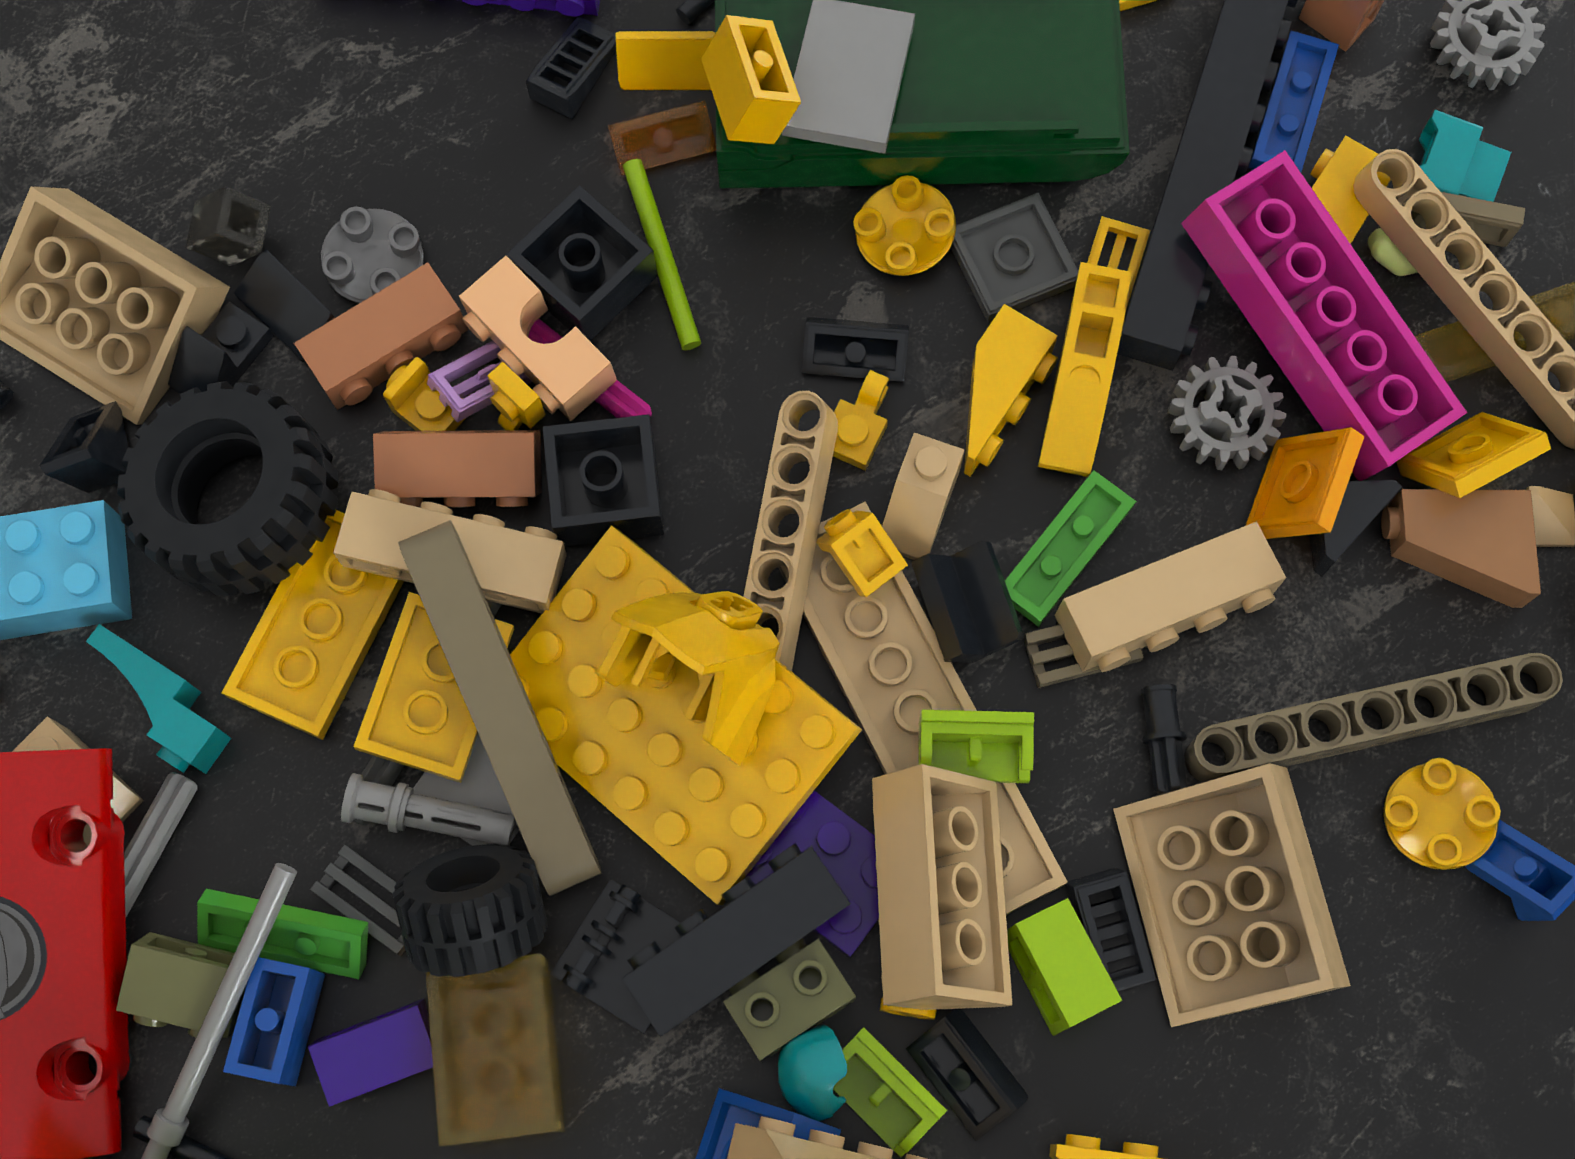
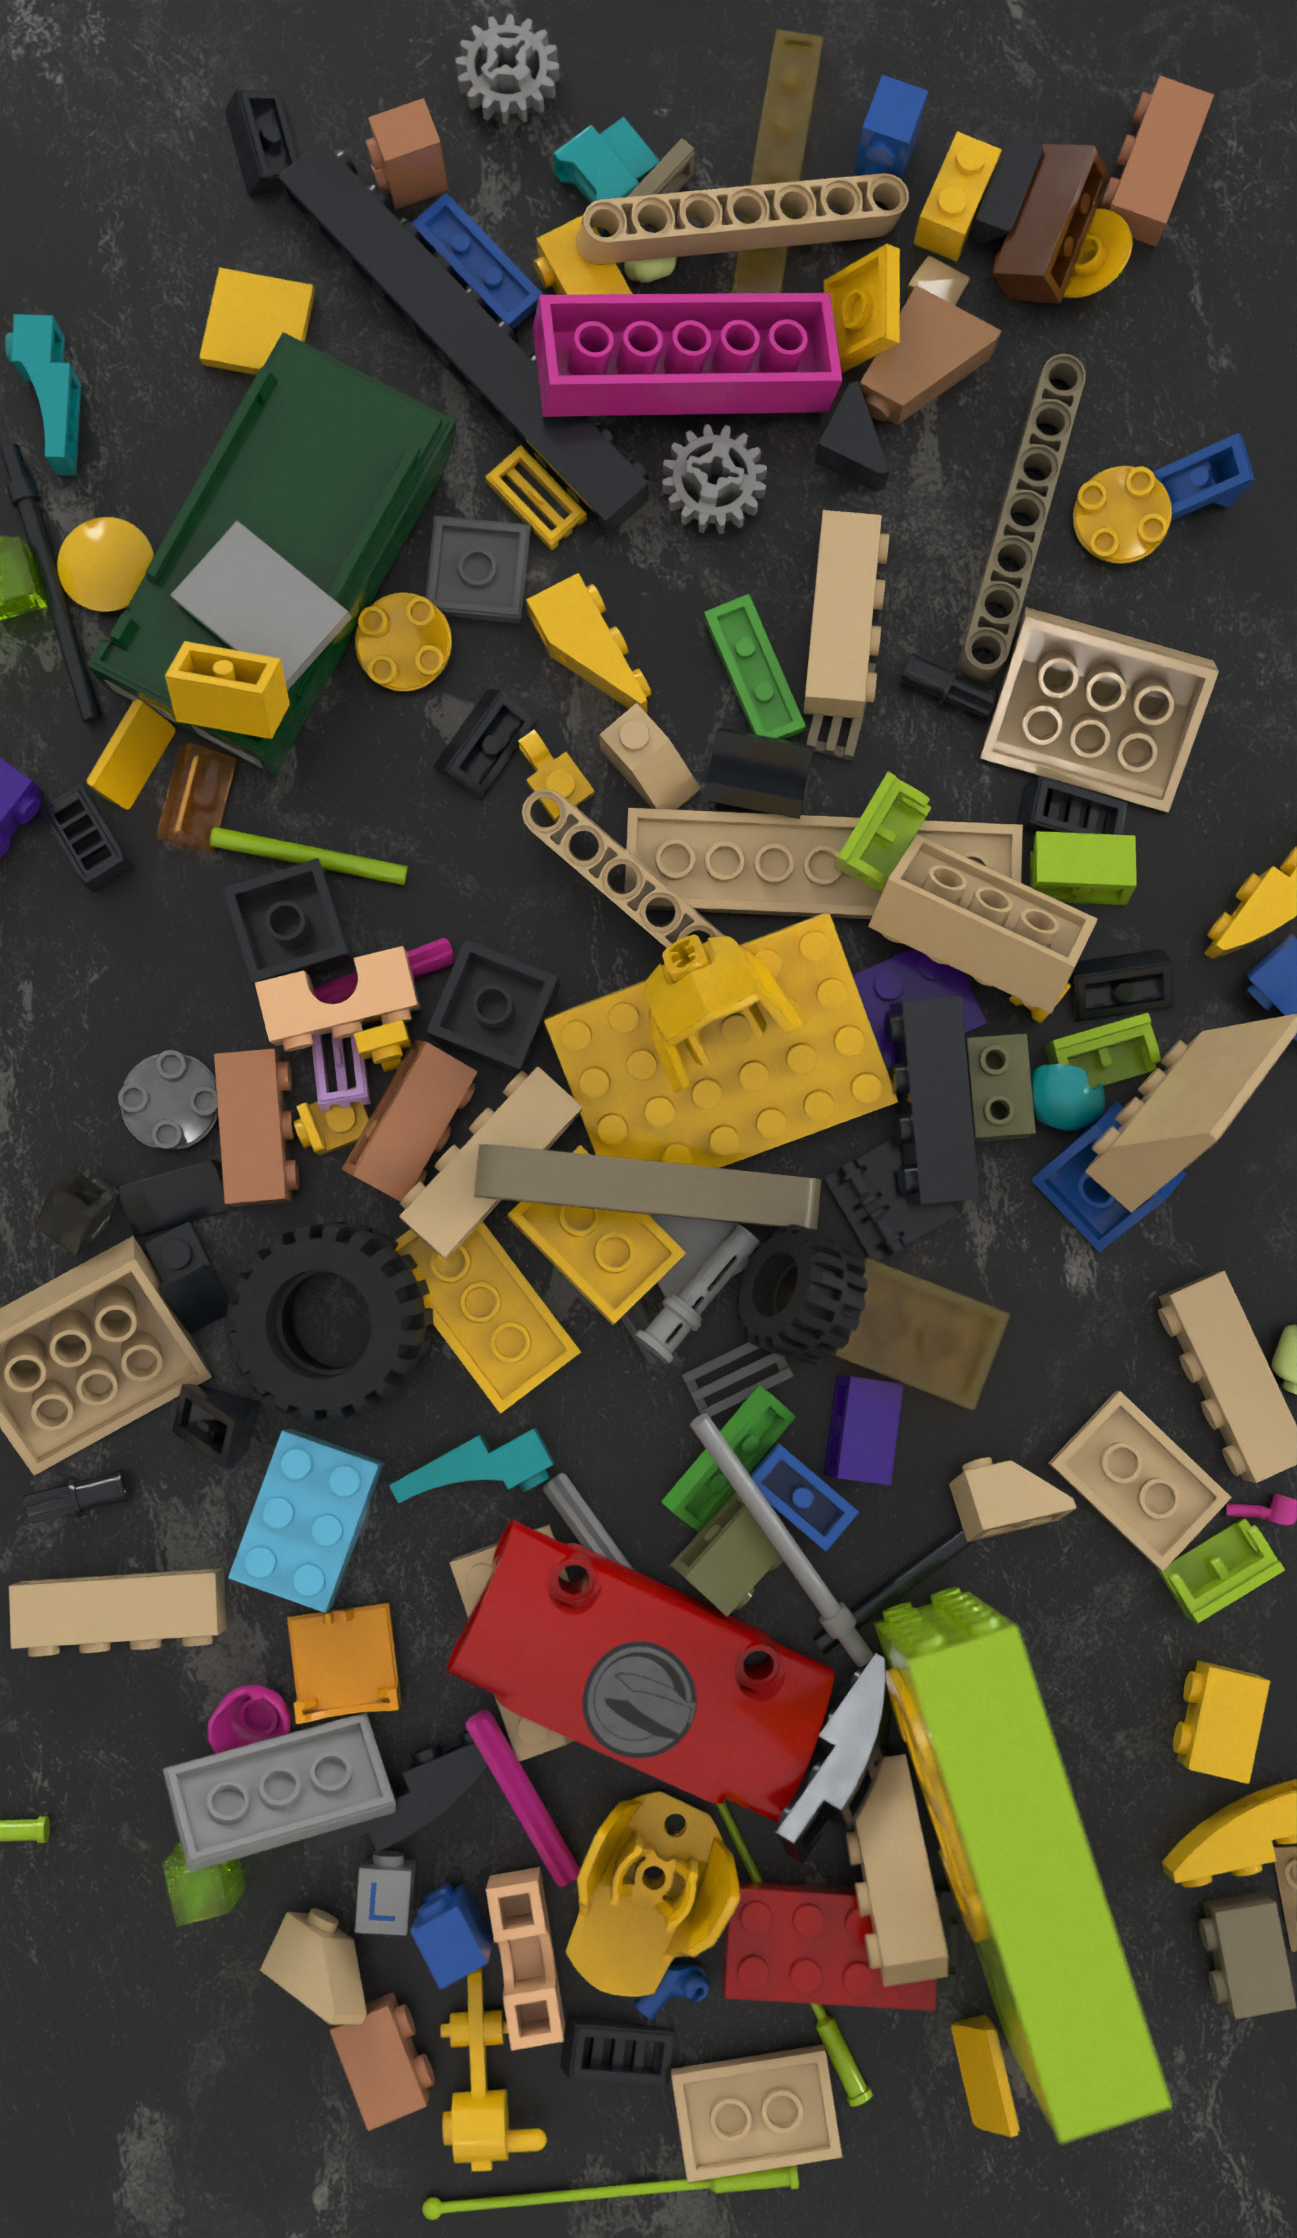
camera: 65 degrees left, 10 degrees up
(861, 550) = (672, 832): yellow bracket -> none
(1085, 369) = (616, 565): yellow slope -> none
(1305, 483) = (813, 454): light orange tile -> none

